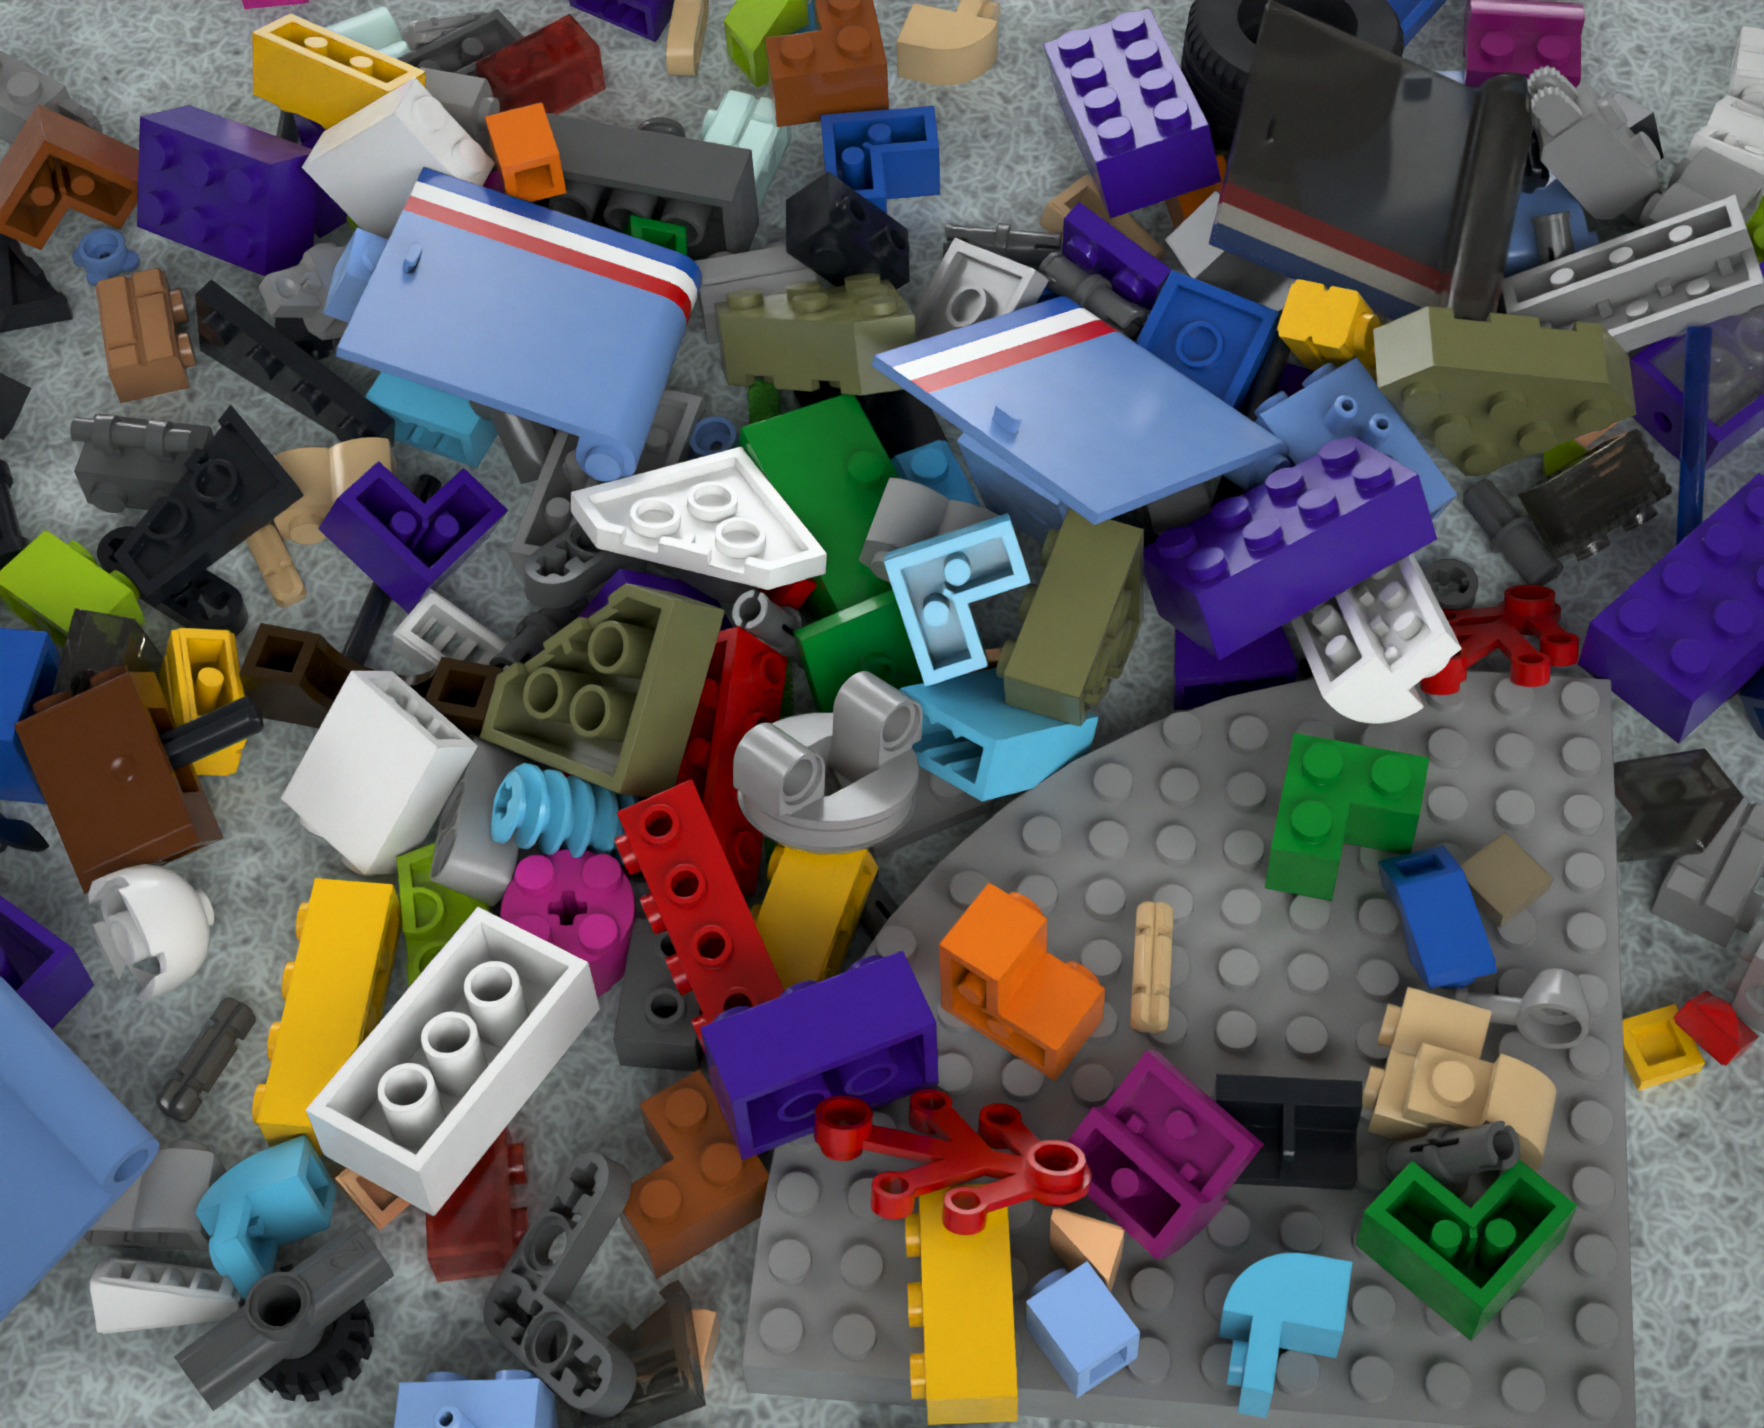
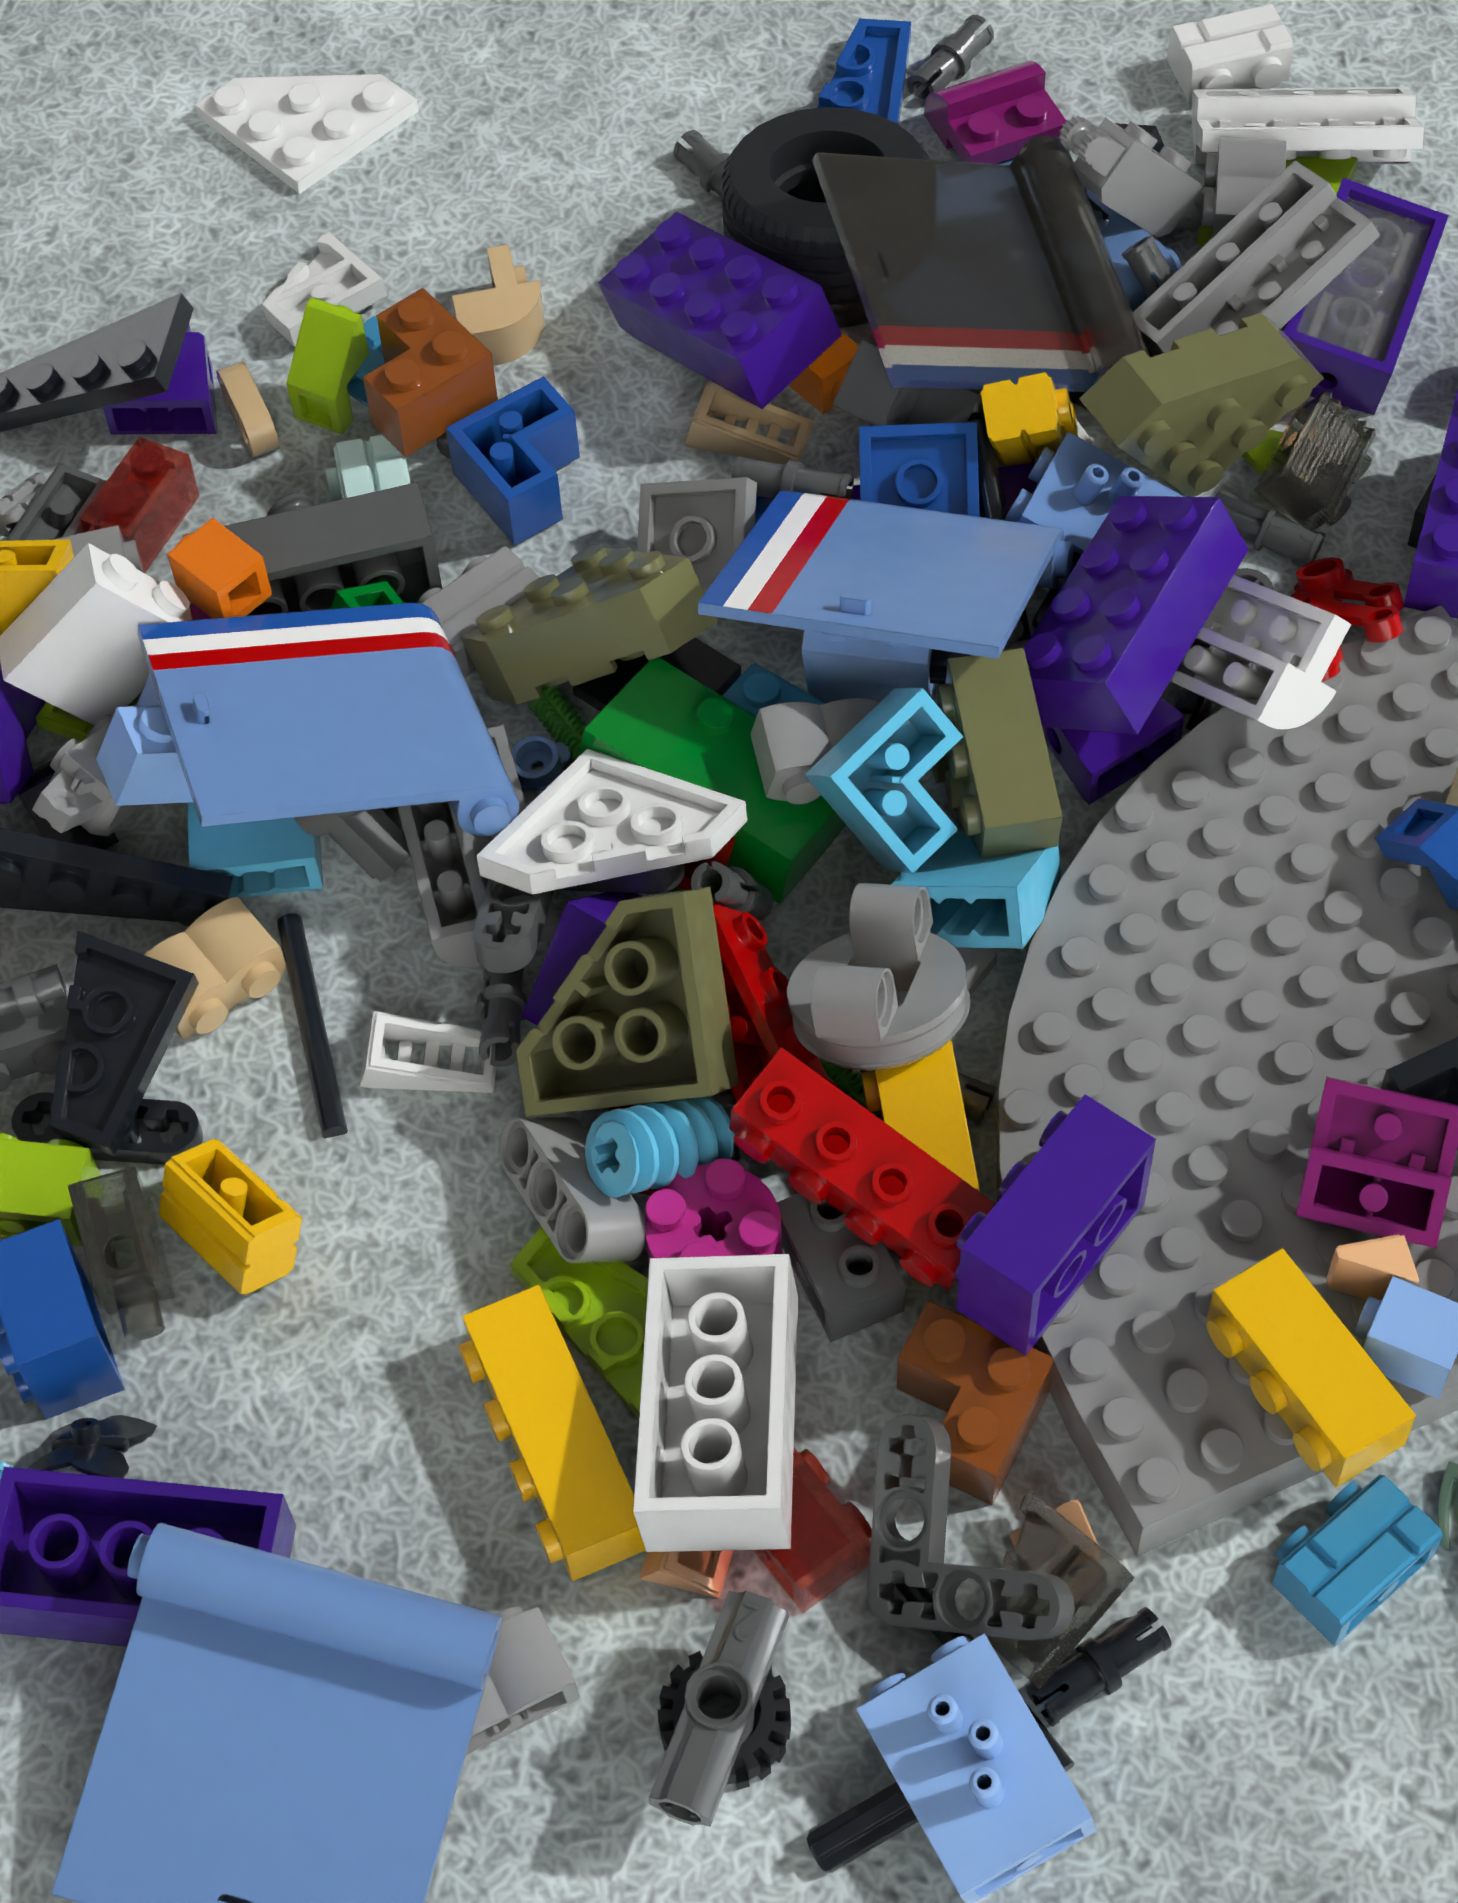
camera: 30 degrees left, 0 degrees up
(125, 772) = (217, 1315): reddish brown piece -> none
(151, 915) = (317, 1433): white cylinder -> none
(153, 1294) = (573, 1759): white slope -> none
(205, 1059) = (453, 1534): dark grey axle -> none
(264, 1205) = (612, 1629): medium azure brick -> none
(276, 566) = (198, 1066): tan axle -> none
(299, 675) = (324, 1150): dark brown arch -> none
(377, 772) = (451, 1195): white brick -> none
(410, 543) = (326, 975): dark purple brick -> none
(844, 234) = (539, 523): black brick -> none
(857, 640) = (814, 880): green plate -> none
(1008, 243) = (669, 469): dark grey pin -> none
(1012, 988) = (1174, 1087): orange brick -> none
(1038, 1170) = (1304, 1224): red plant -> none
(1108, 252) = (785, 436): dark purple wing -> none
(1152, 967) = (1256, 1016): tan axle -> none
(1336, 797) = (1316, 804): green brick -> none
(1694, 430) = (1376, 389): clear blue bar -> none

